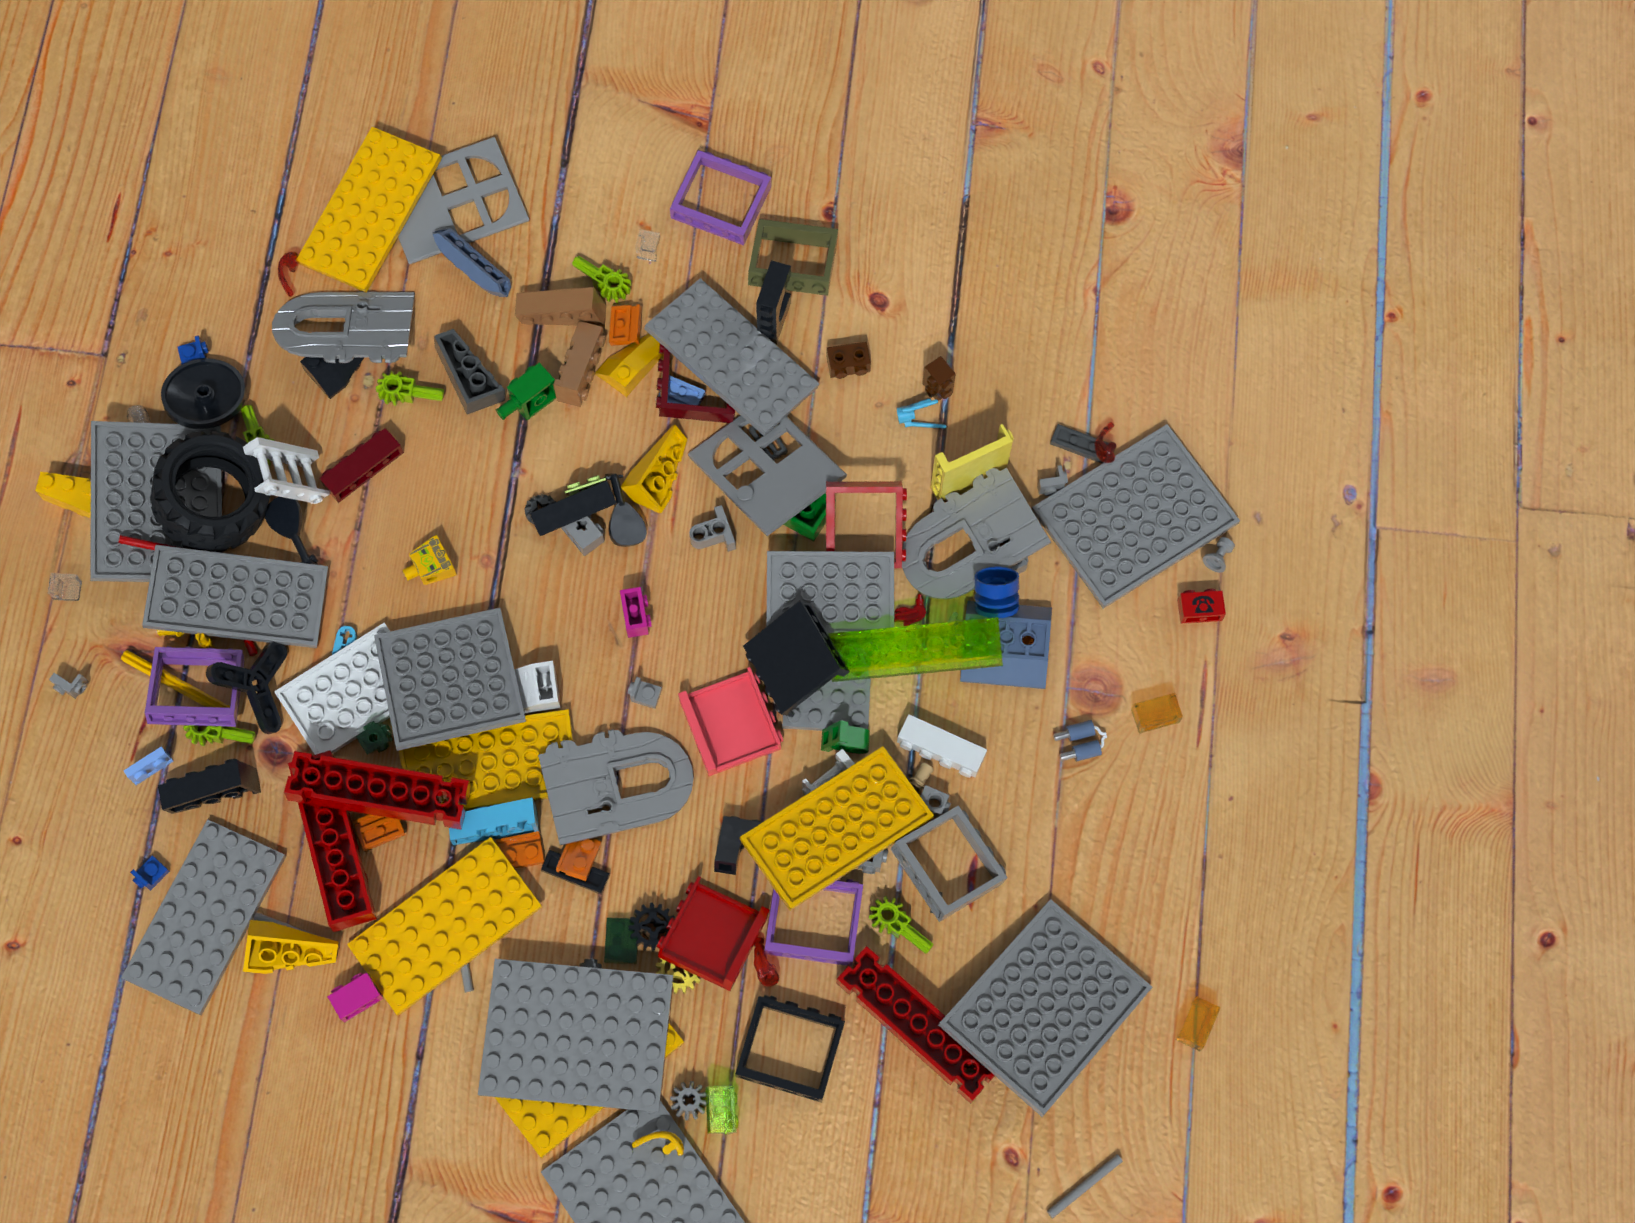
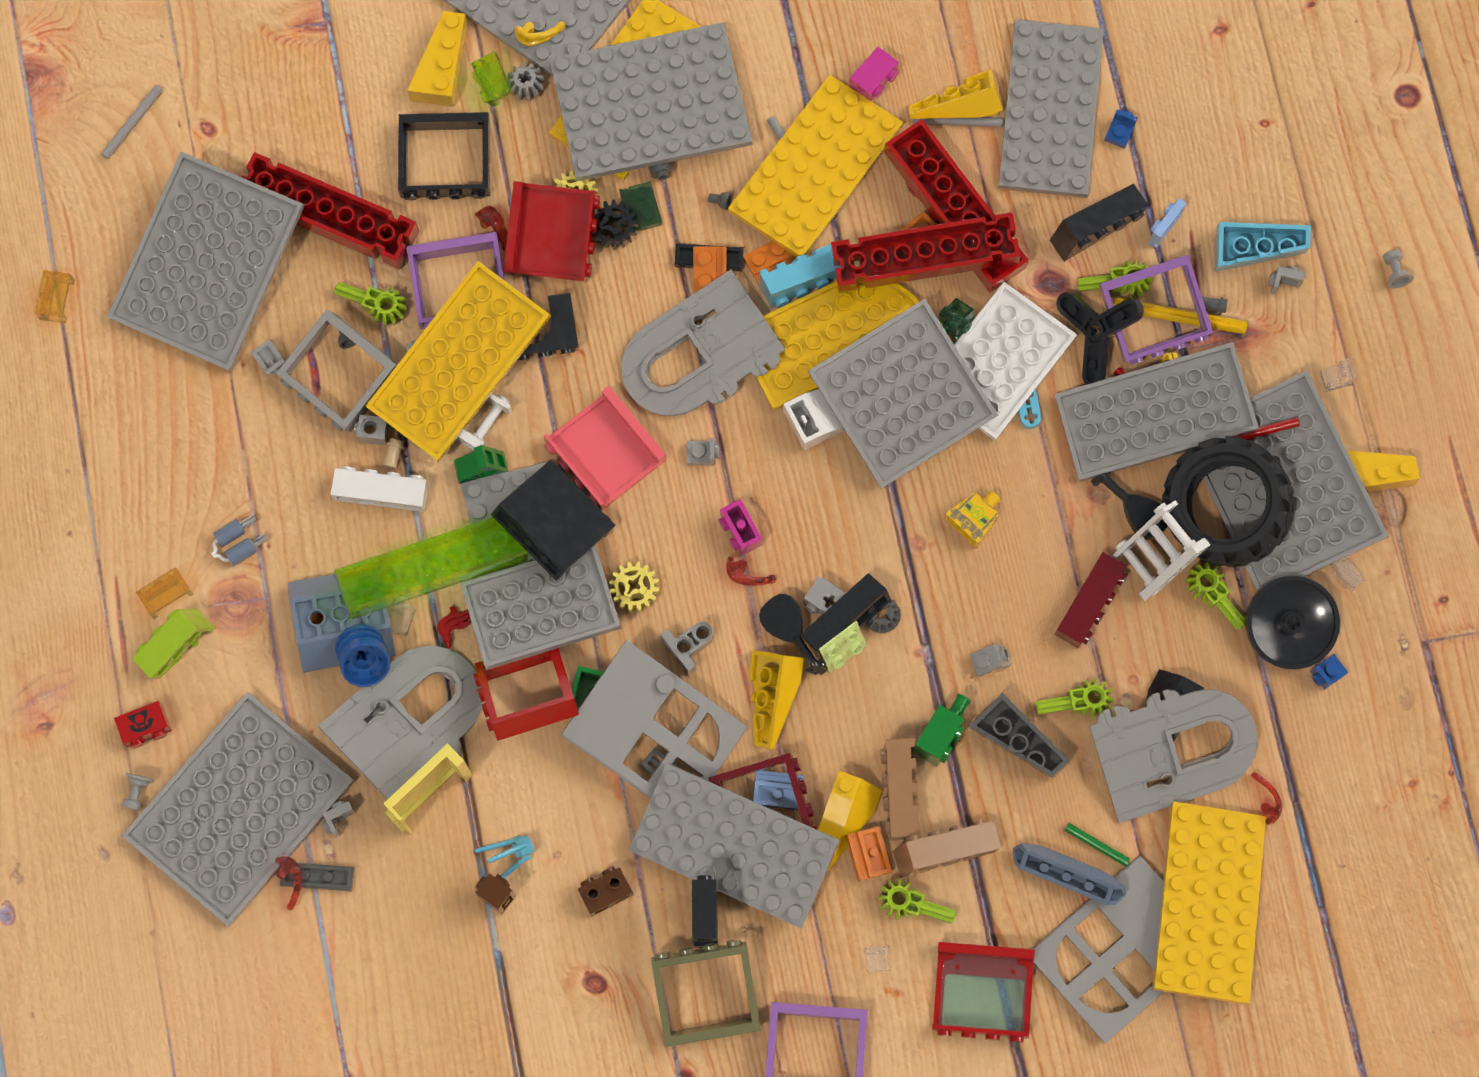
camera: 165 degrees right, 5 degrees up
(83, 723) = (1256, 243): none -> medium azure wedge
(139, 681) = (1215, 305): none -> dark grey pin
(439, 281) = (1096, 844): none -> green bar
(465, 444) = (990, 659): none -> light grey bracket
(543, 921) = (723, 200): none -> dark grey piece
(574, 199) = (983, 991): none -> clear light blue panel
(653, 582) = (735, 572): none -> clear red piece
(744, 584) = (626, 581): none -> light yellow gear
(767, 1141) = (440, 66): none -> yellow wedge
(1010, 898) = (268, 357): none -> light grey bracket
(1158, 666) = (171, 641): none -> lime wedge

